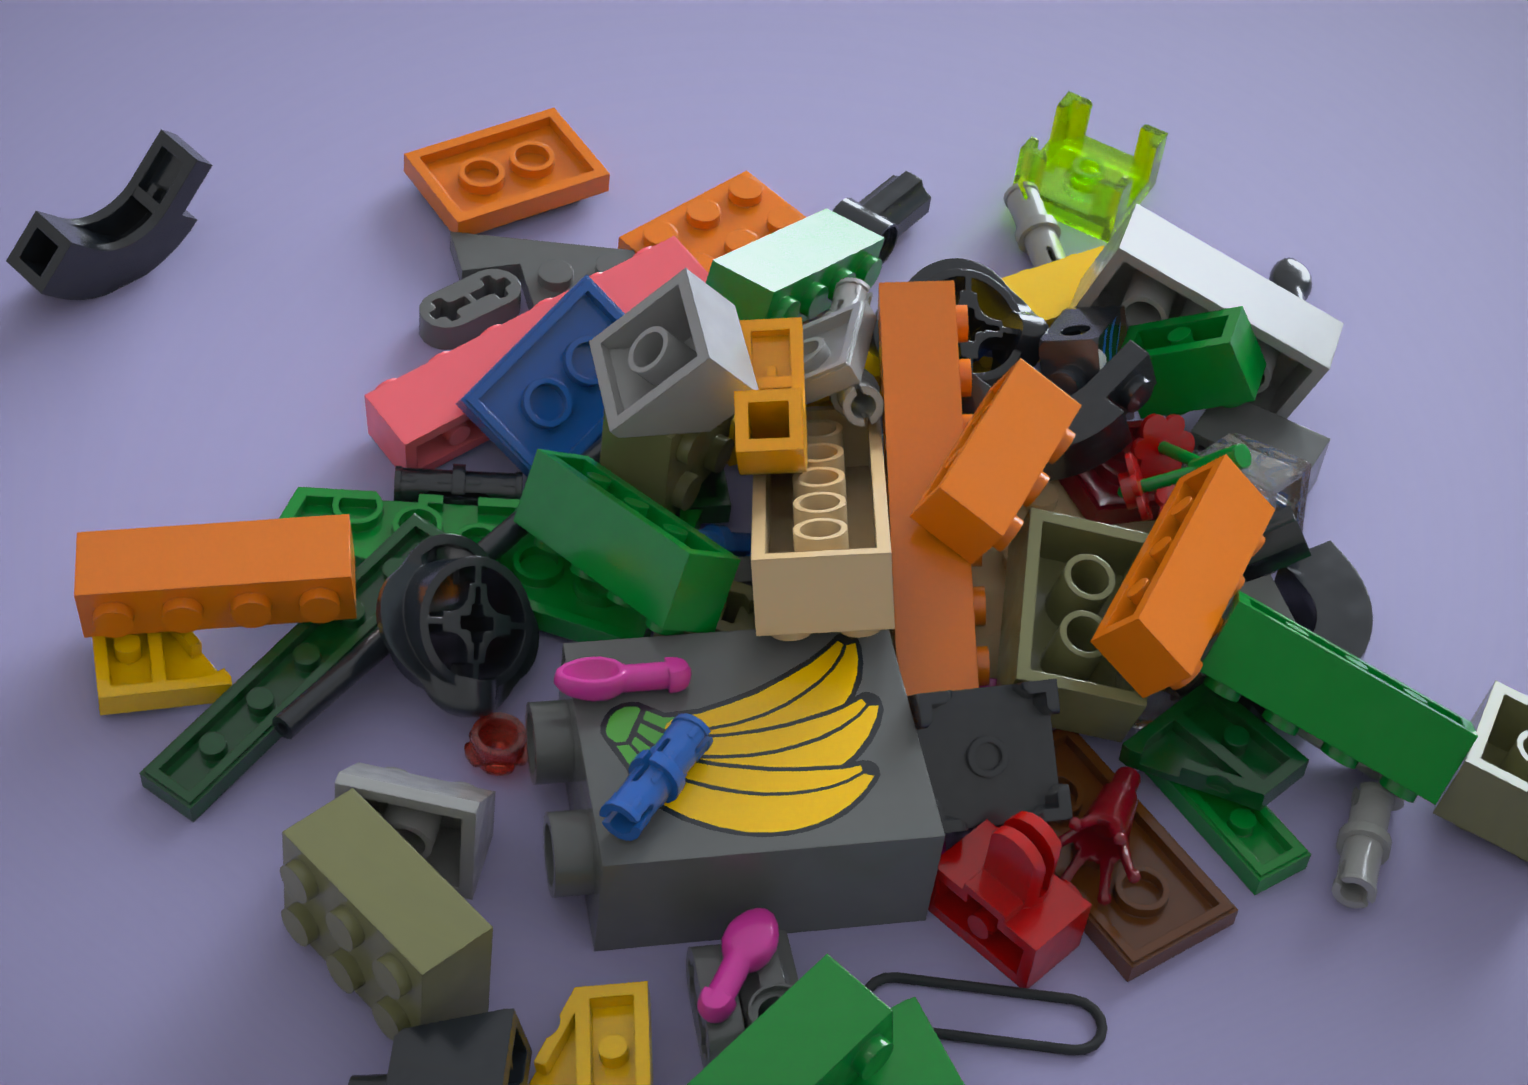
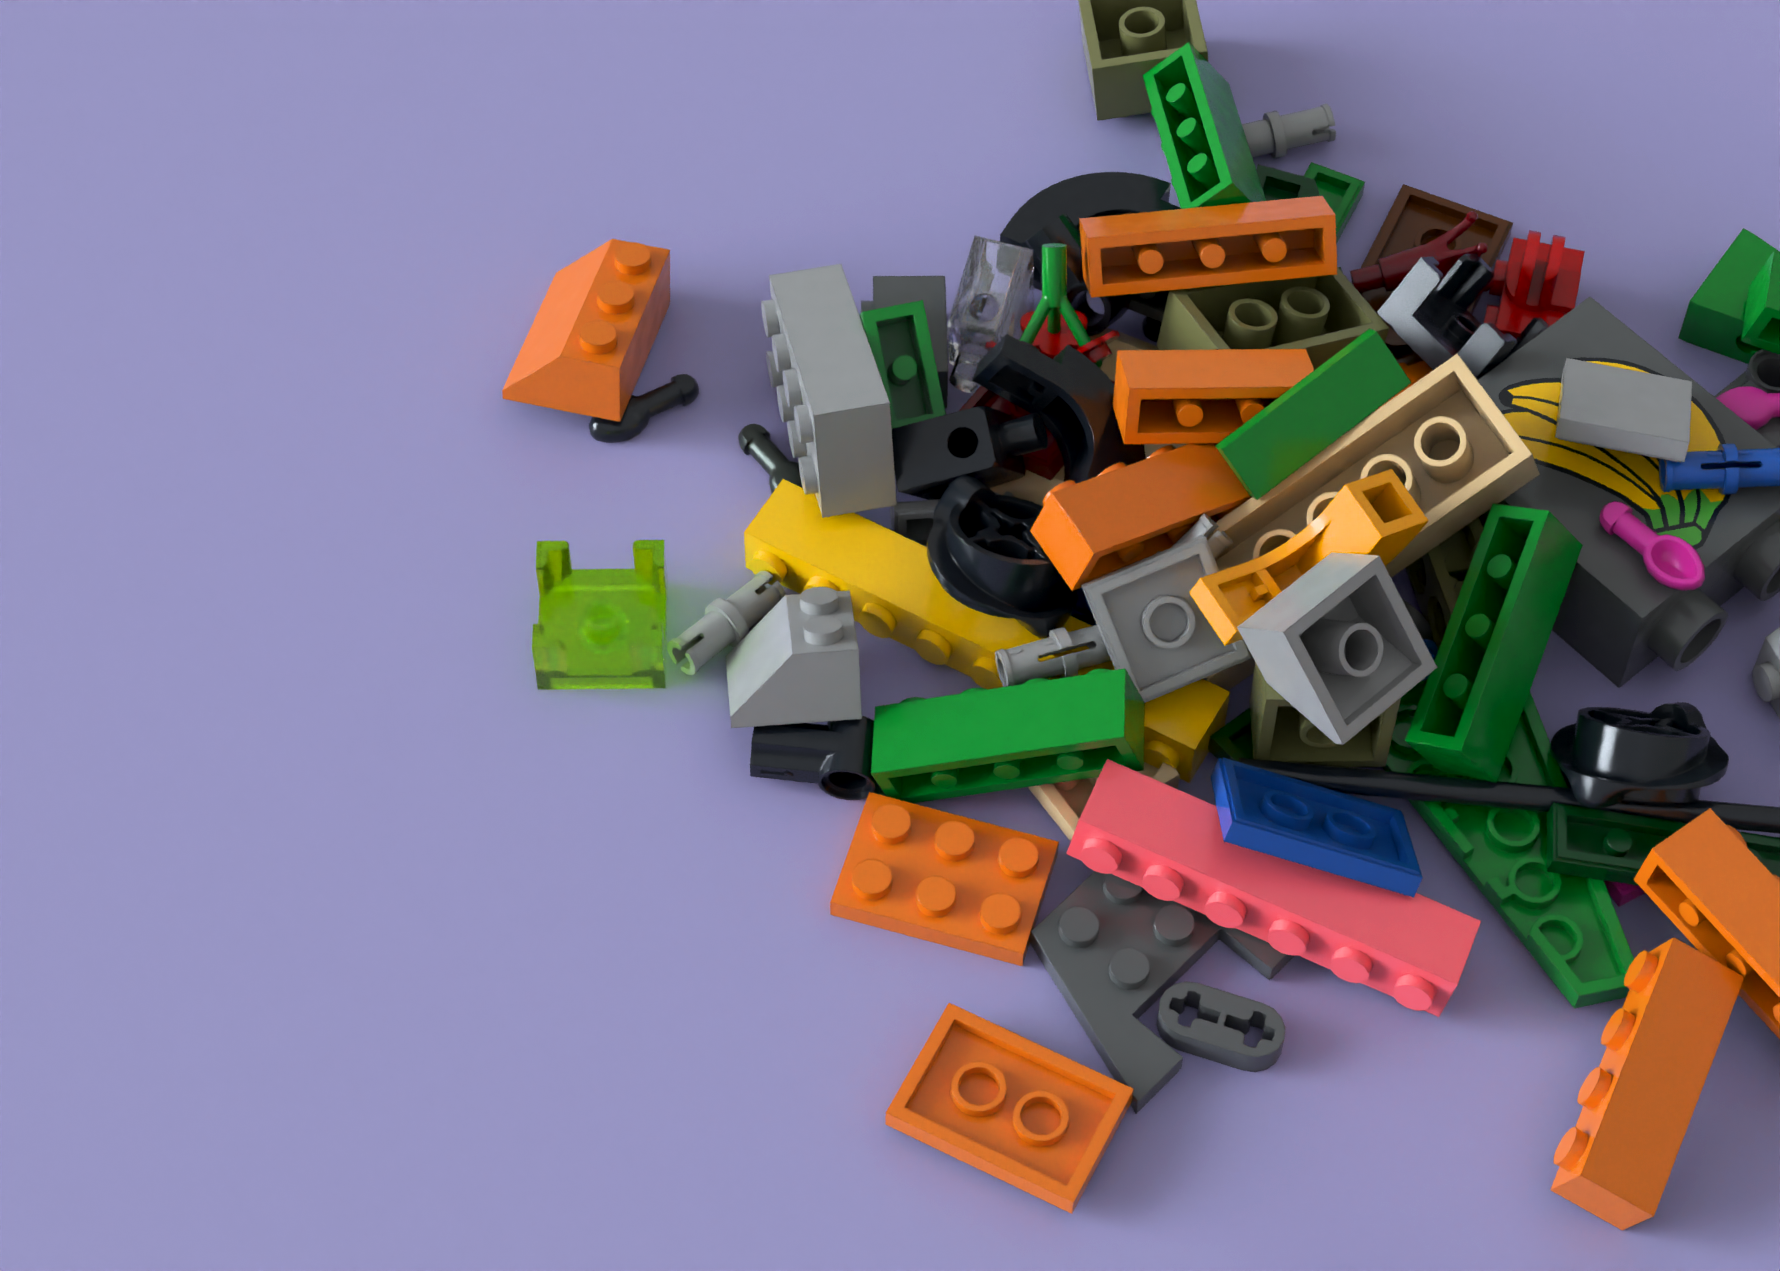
camera: 115 degrees left, 10 degrees up
(182, 448) = (1645, 1083): none -> orange brick
(455, 485) = (1457, 890): black pin -> none
(501, 732) = (1691, 687): clear red plate -> none
(775, 728) = (1624, 410): none -> light grey tile
(916, 475) = (1313, 414): none -> green tile
(947, 218) = (797, 663): none -> light grey slope
(1009, 991) = (1634, 283): black piece -> none
(1372, 280) = (594, 331): none -> orange slope

